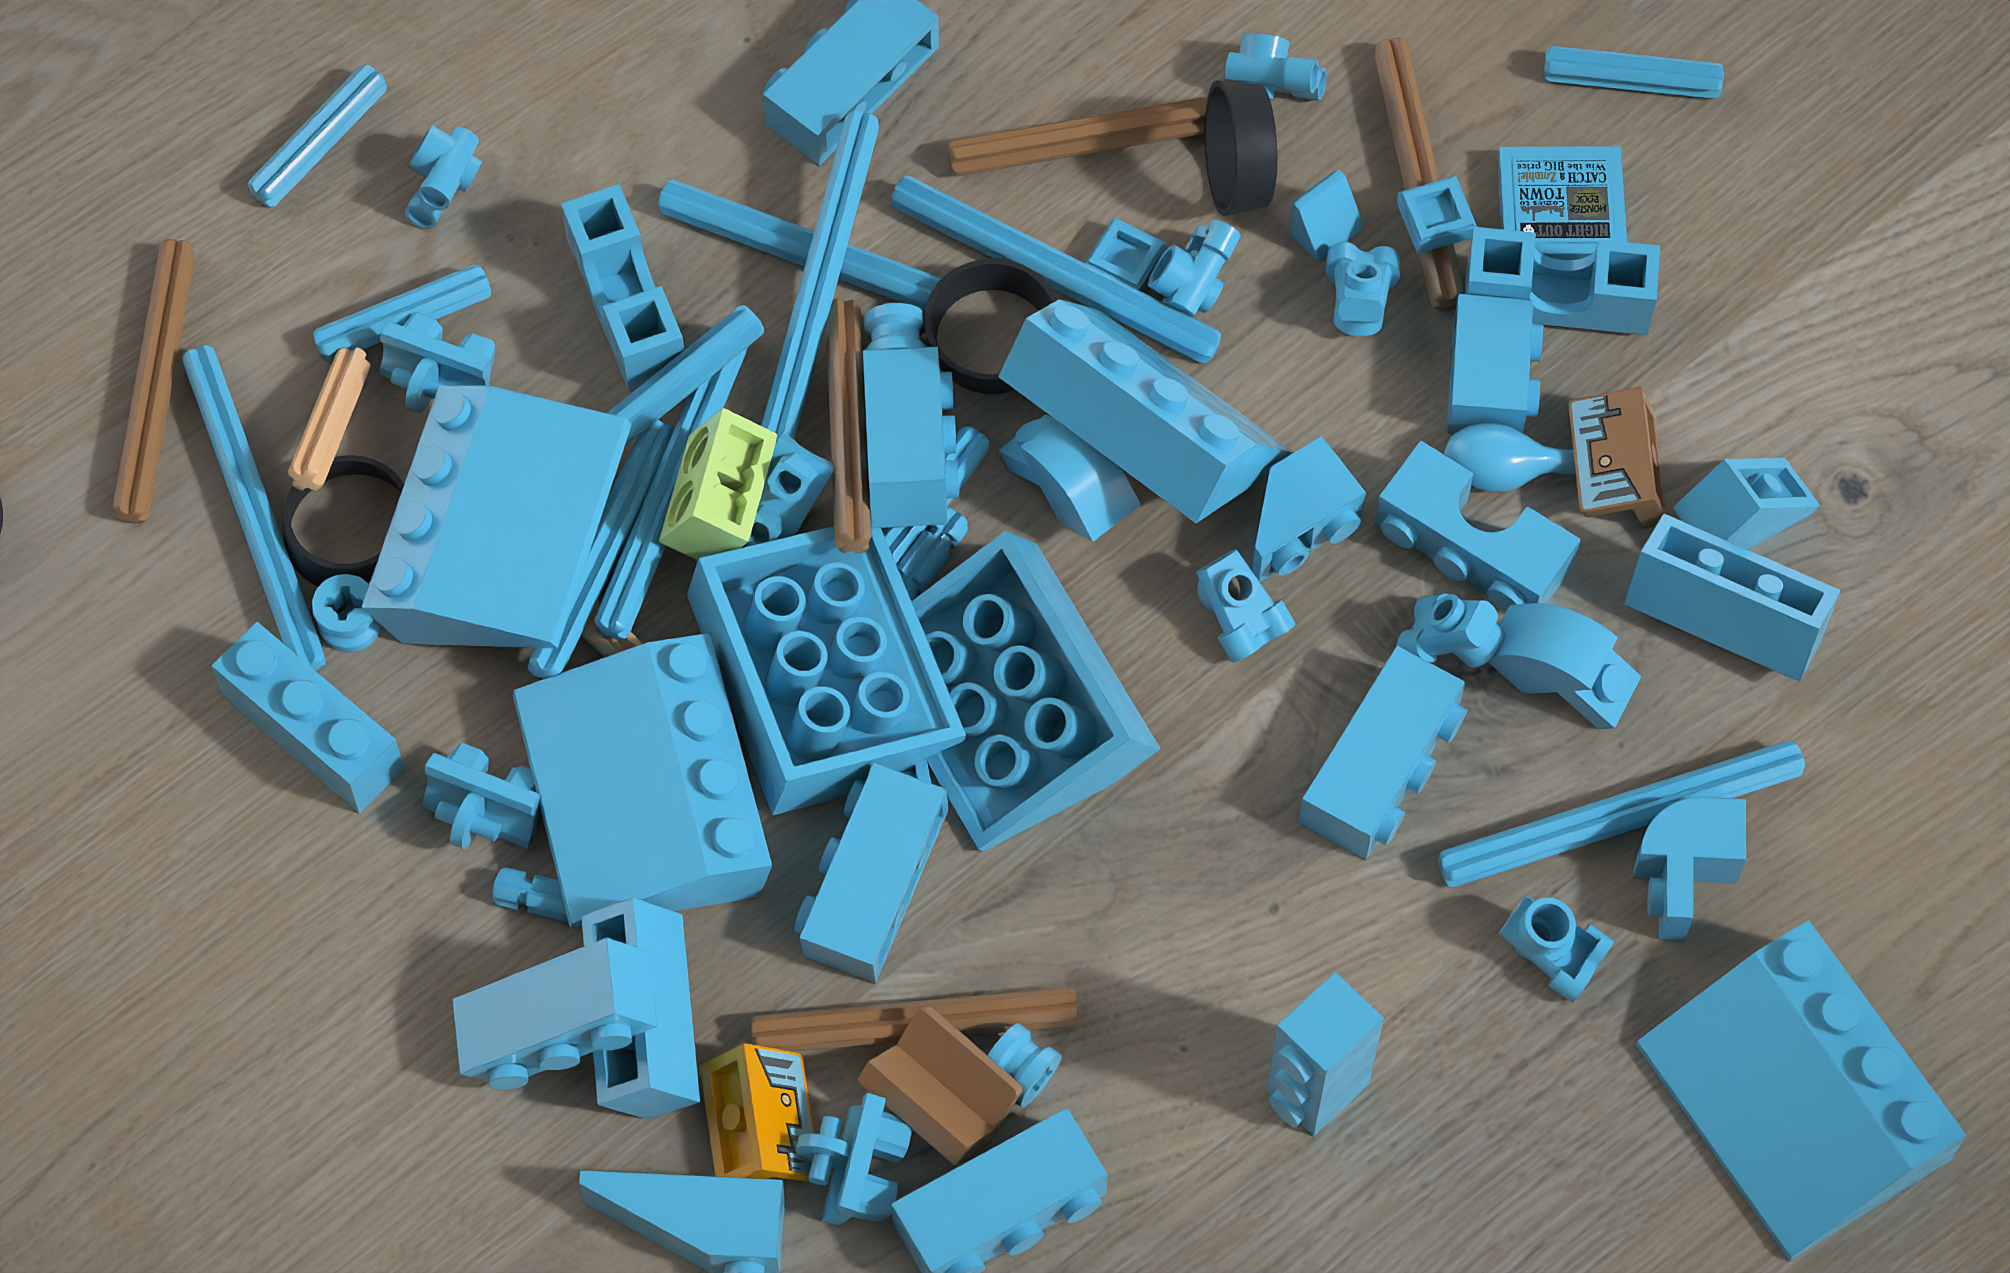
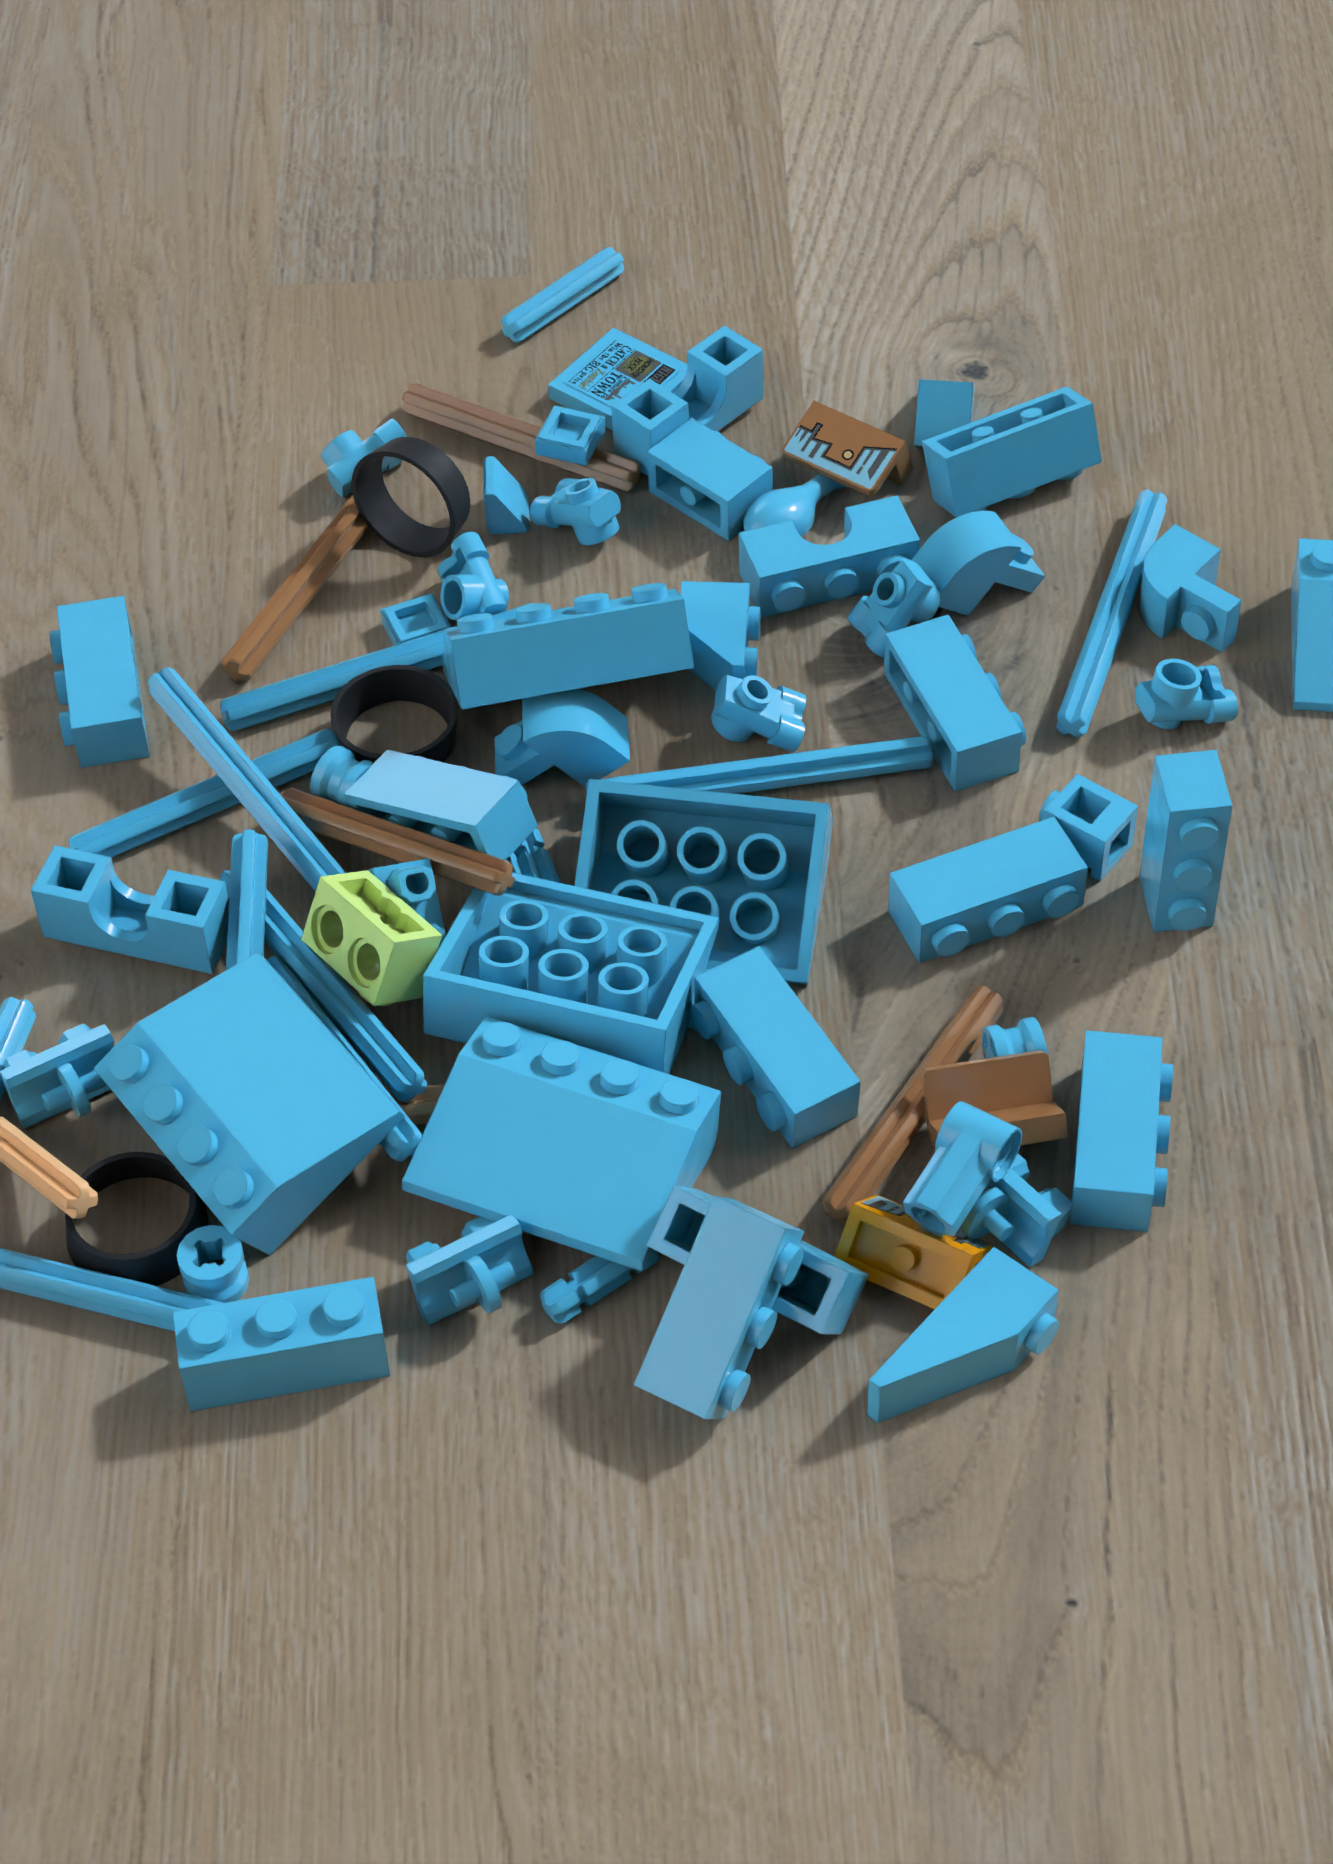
camera: 50 degrees left, 15 degrees down
(844, 1102) = (967, 1155): none -> medium azure piece
(1180, 655) = (794, 768): none -> medium azure axle
(1183, 927) = (987, 889): none -> medium azure brick
(1322, 933) = (1095, 822): none -> medium azure brick

